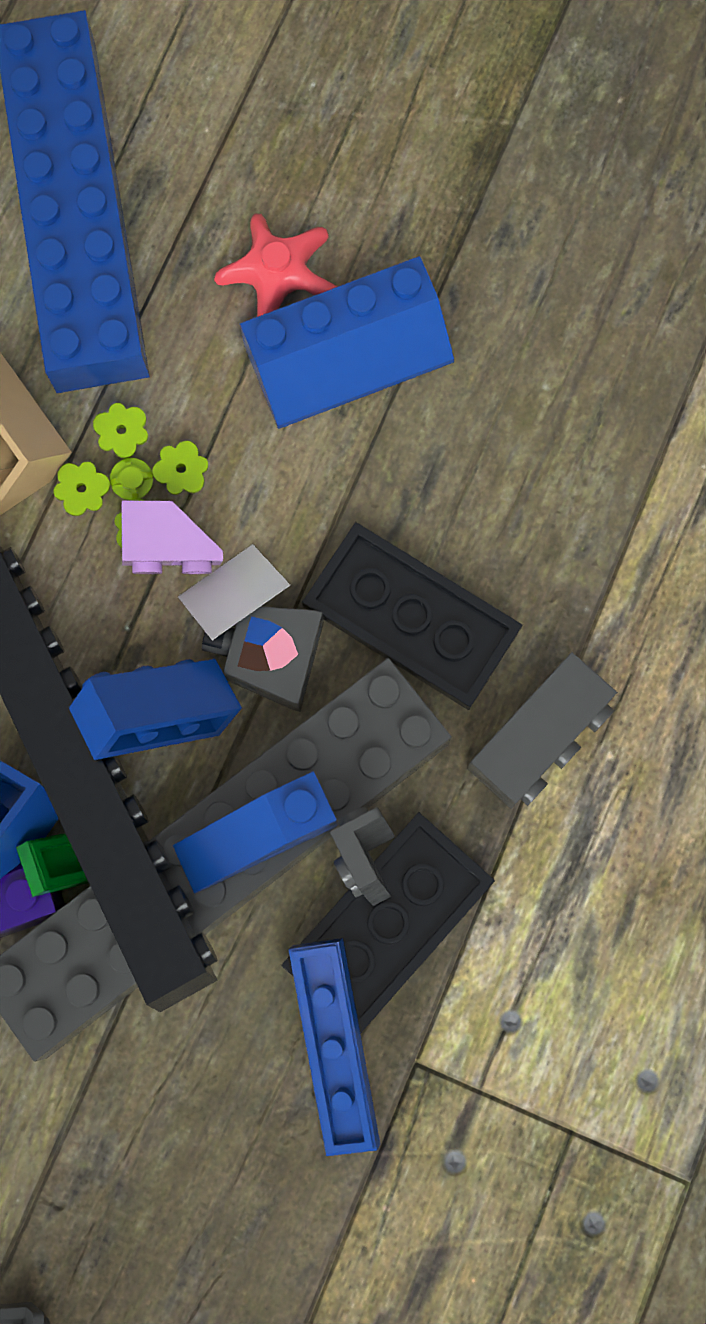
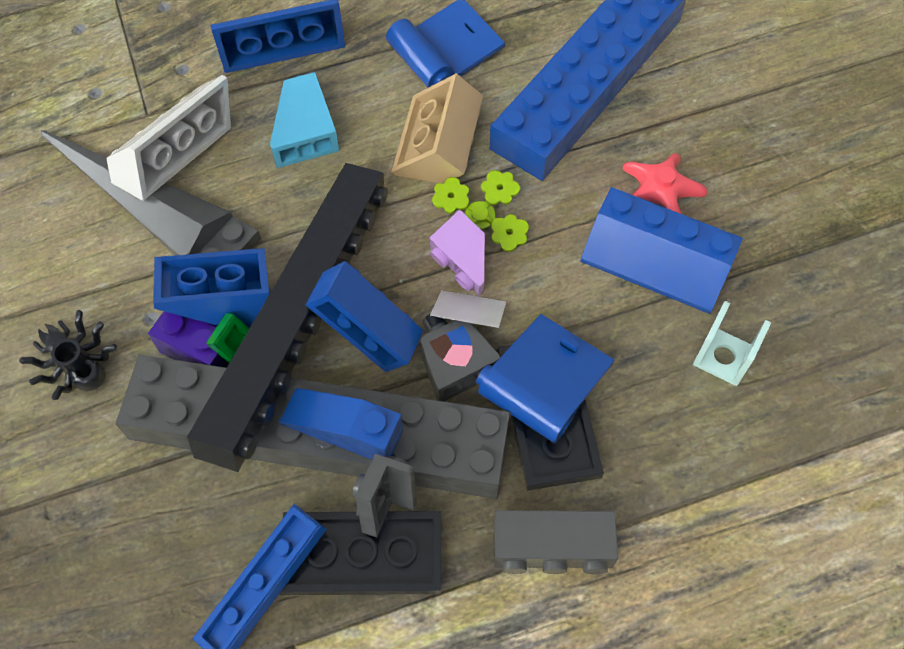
camera: 45 degrees right, 15 degrees down
(381, 587) = (544, 377): none -> blue door
(530, 373) = (743, 352): none -> light aqua piece

